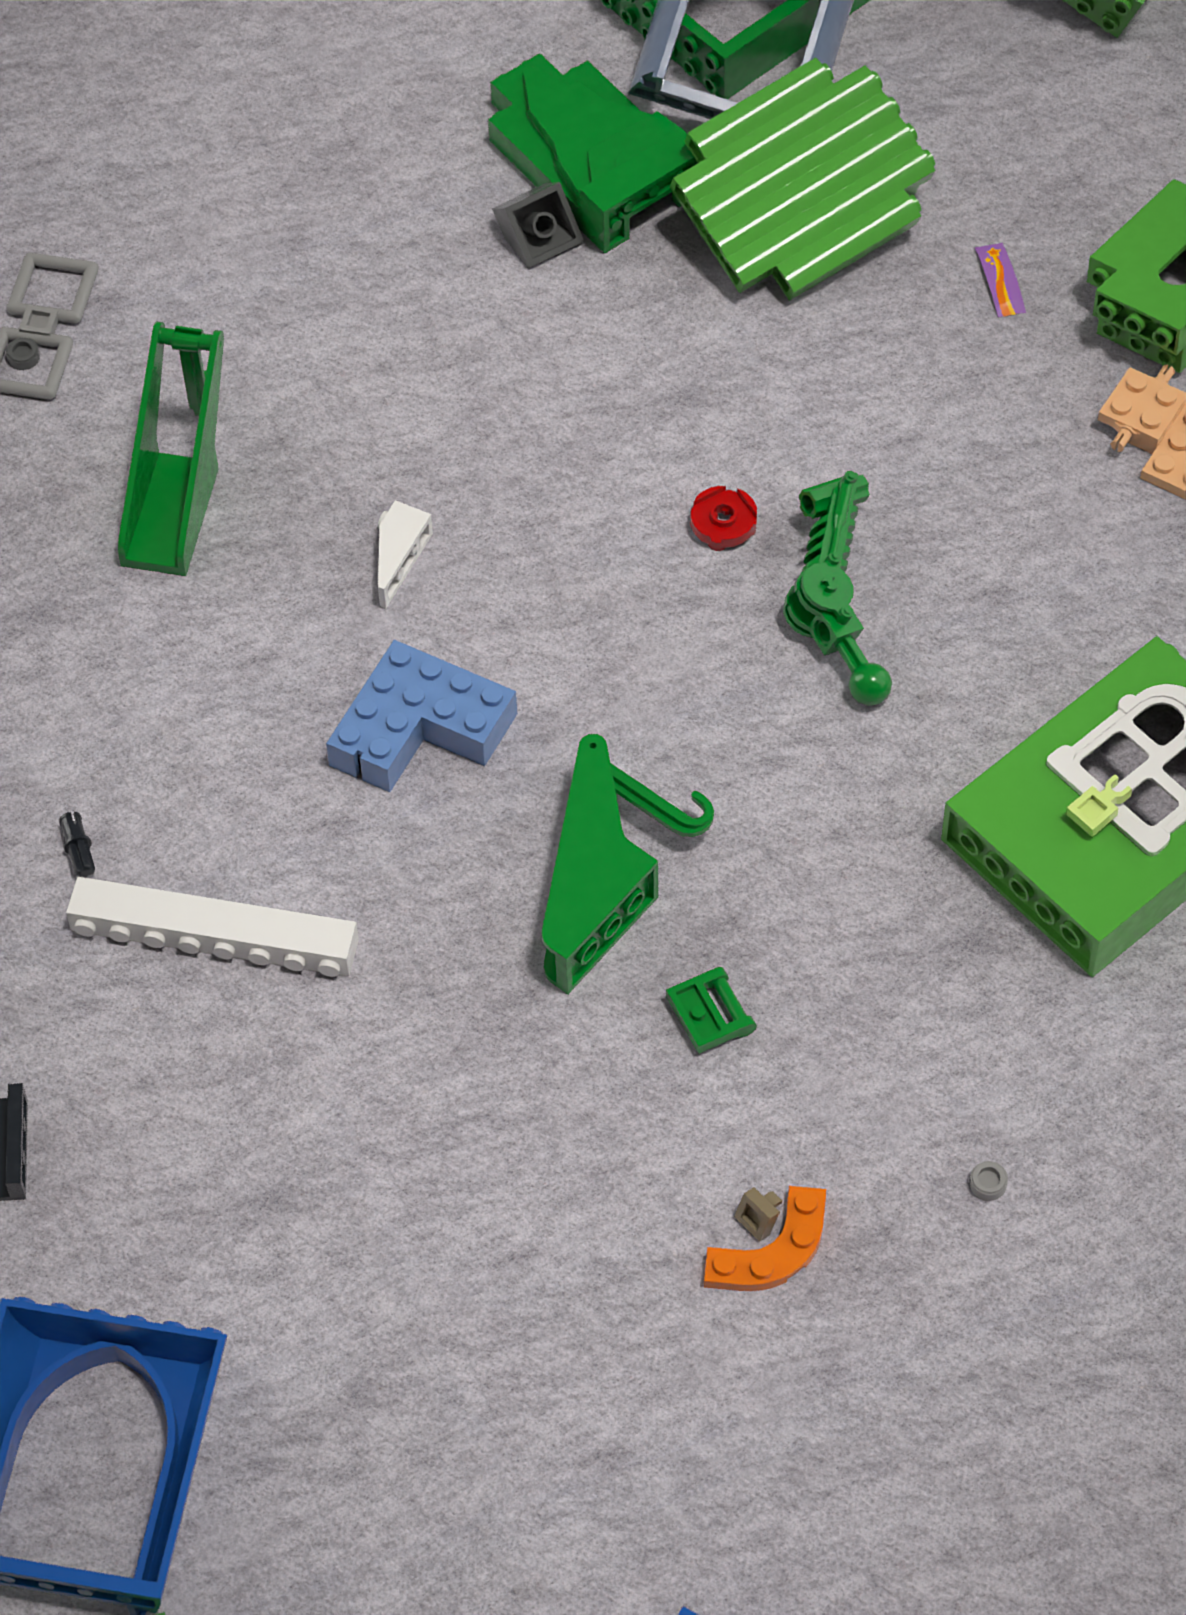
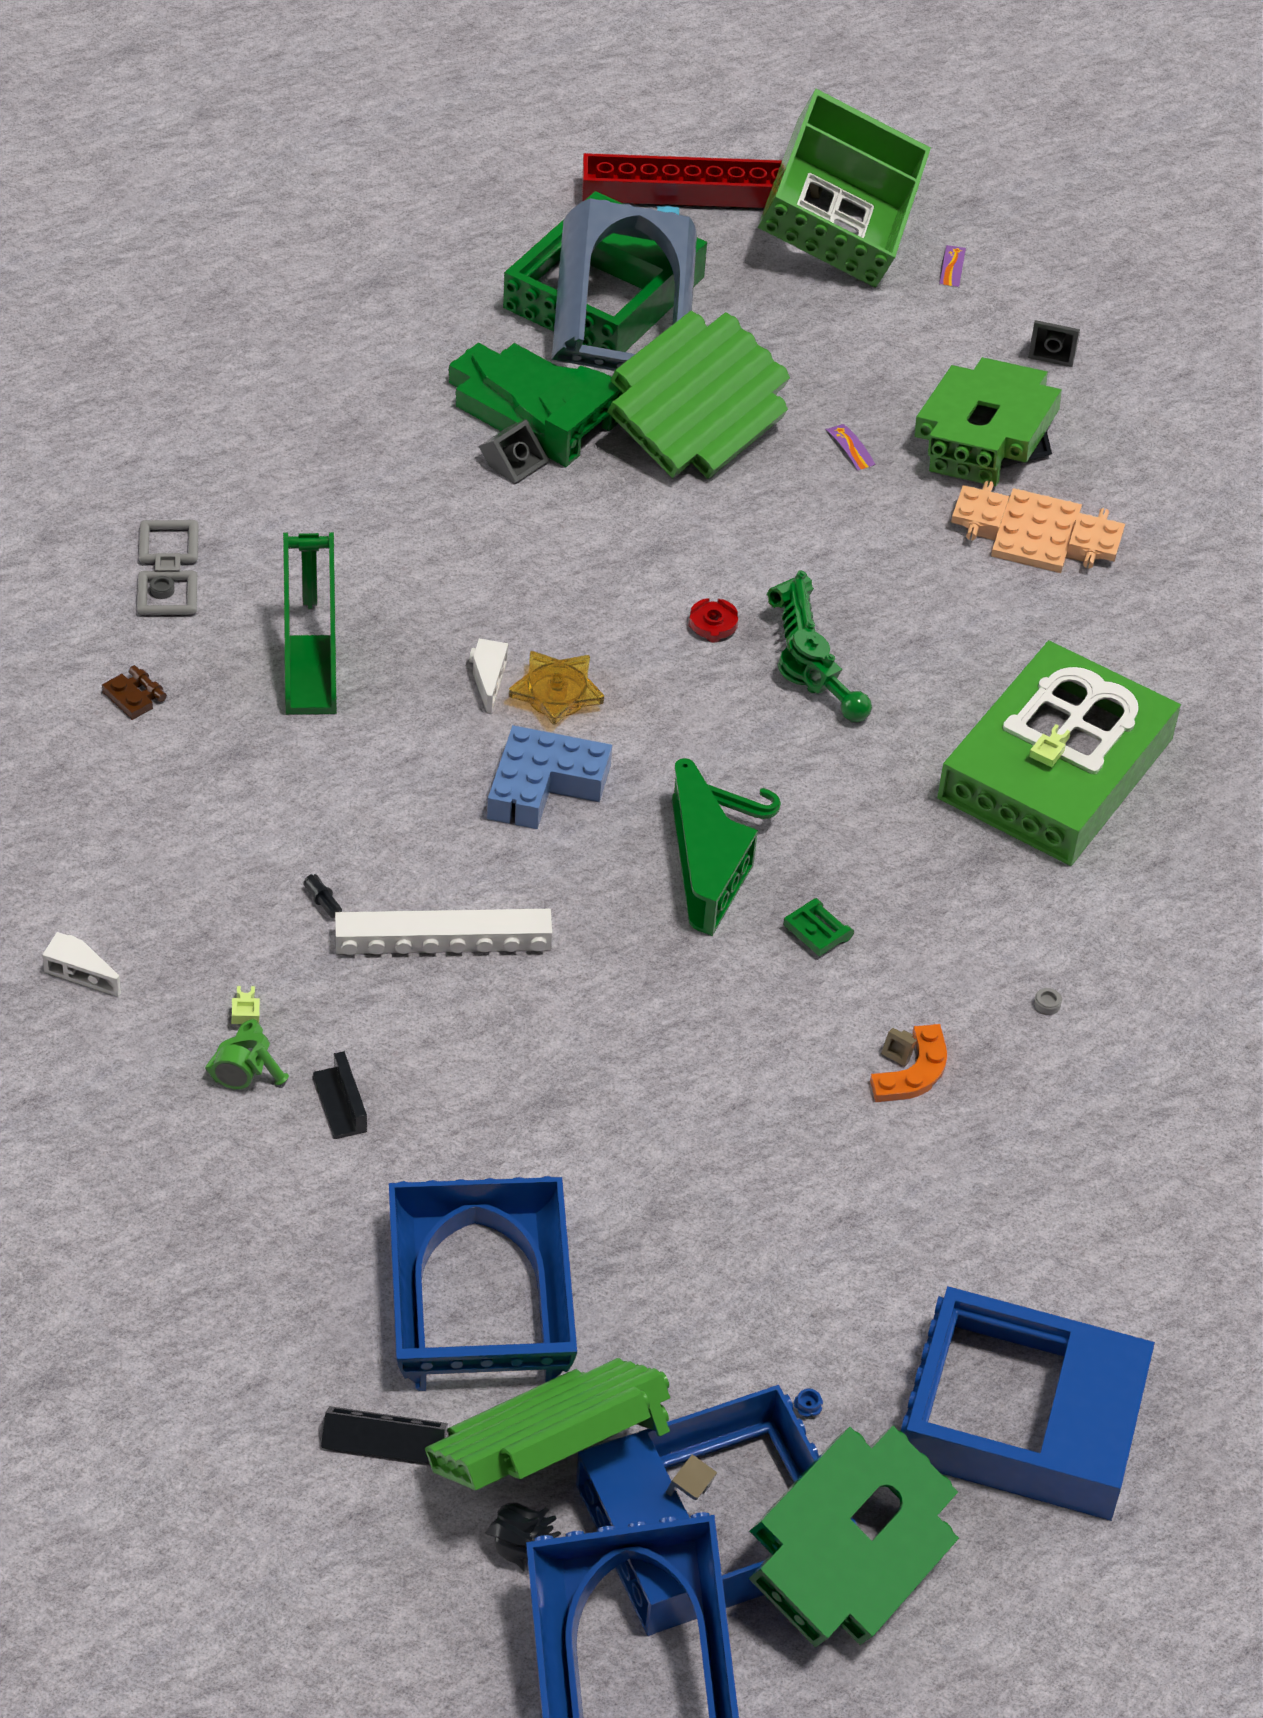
camera: 20 degrees left, 10 degrees down
(479, 585) = (557, 686): none -> clear yellow plate

